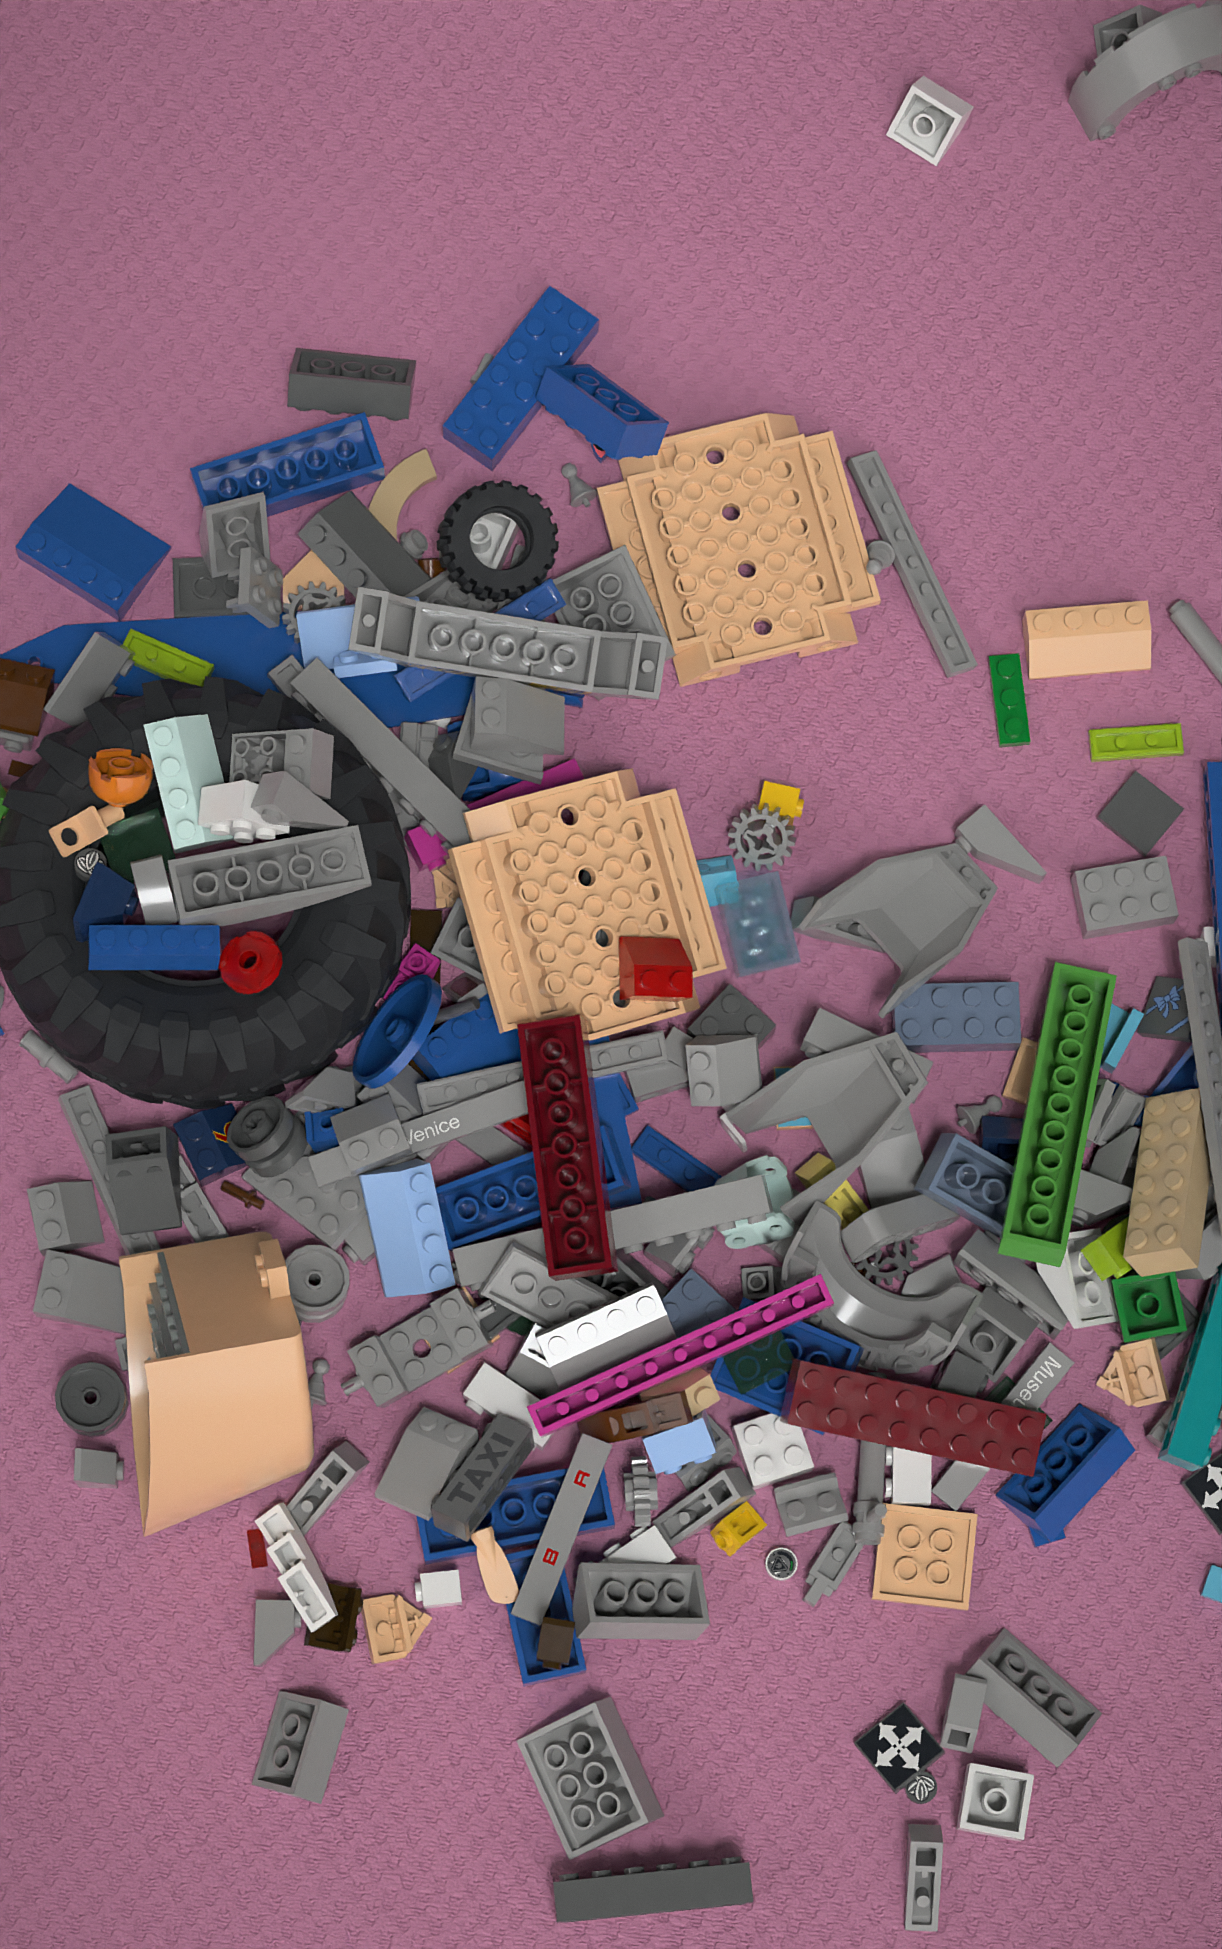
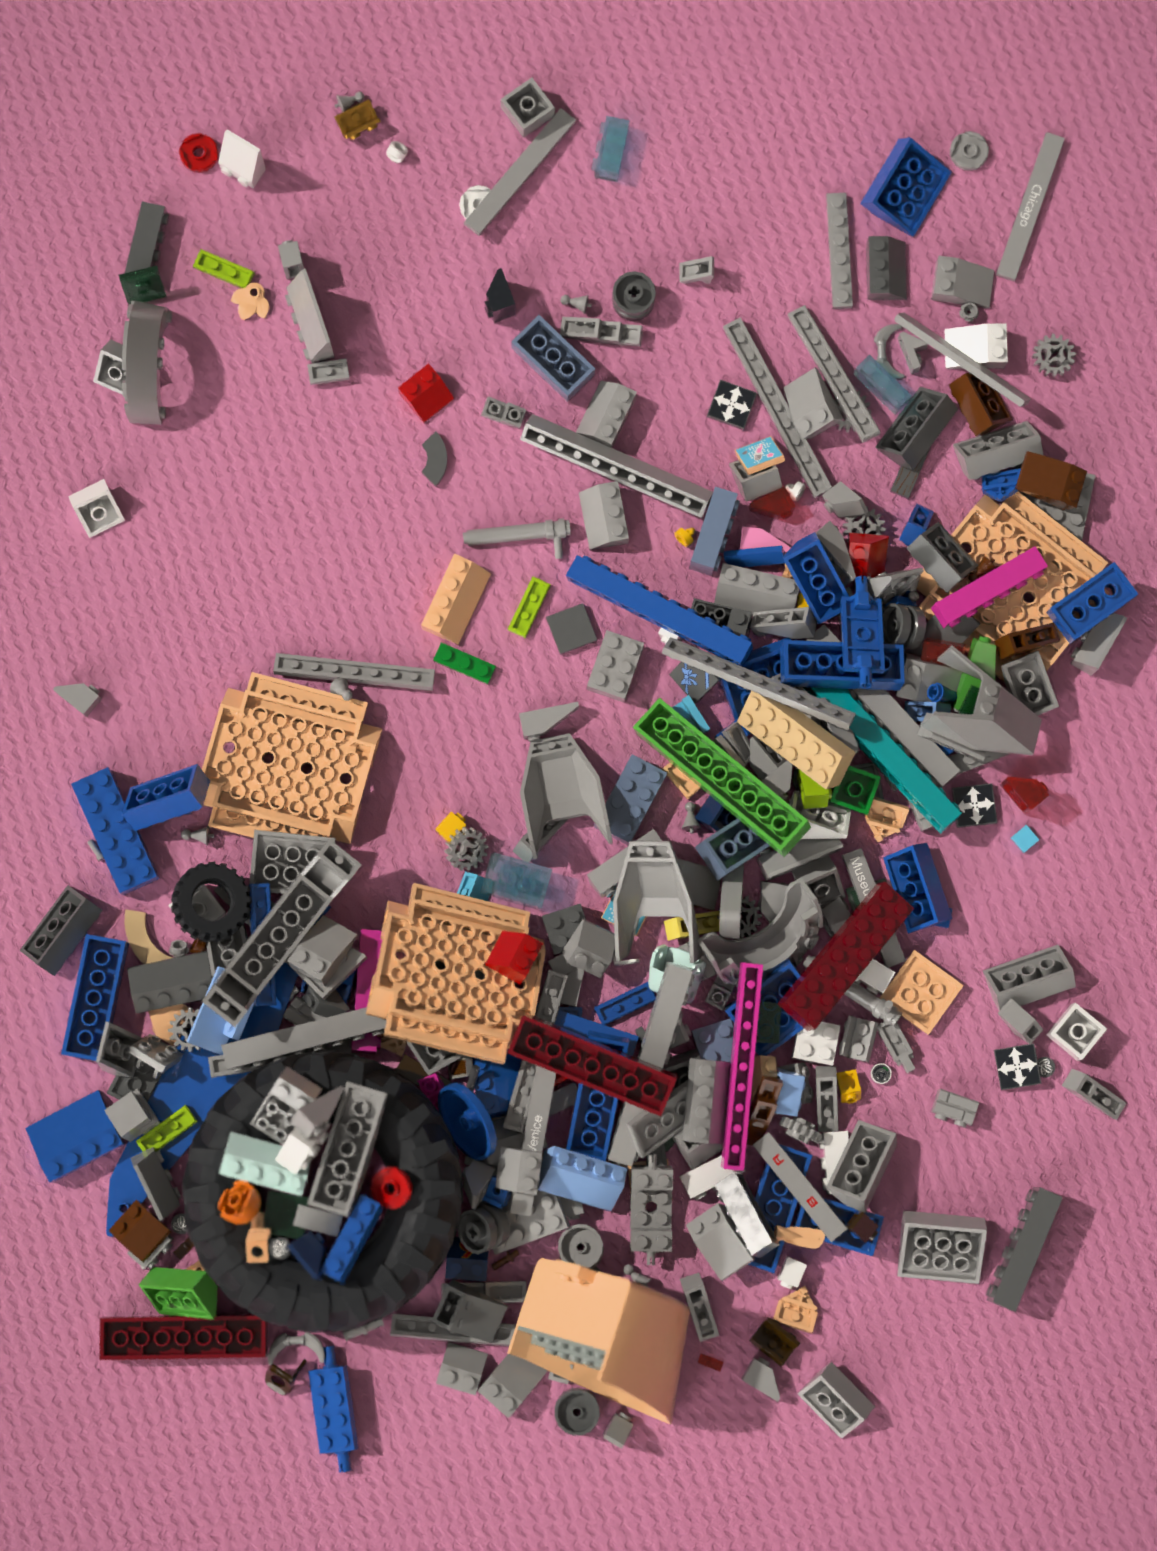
camera: 60 degrees left, 5 degrees up
(160, 603) = (132, 1115): none -> light grey plate
(298, 1567) = (736, 1346): white slope -> none
(670, 237) = (80, 696): none -> light grey slope
(792, 1691) = (954, 1107): none -> light grey brick

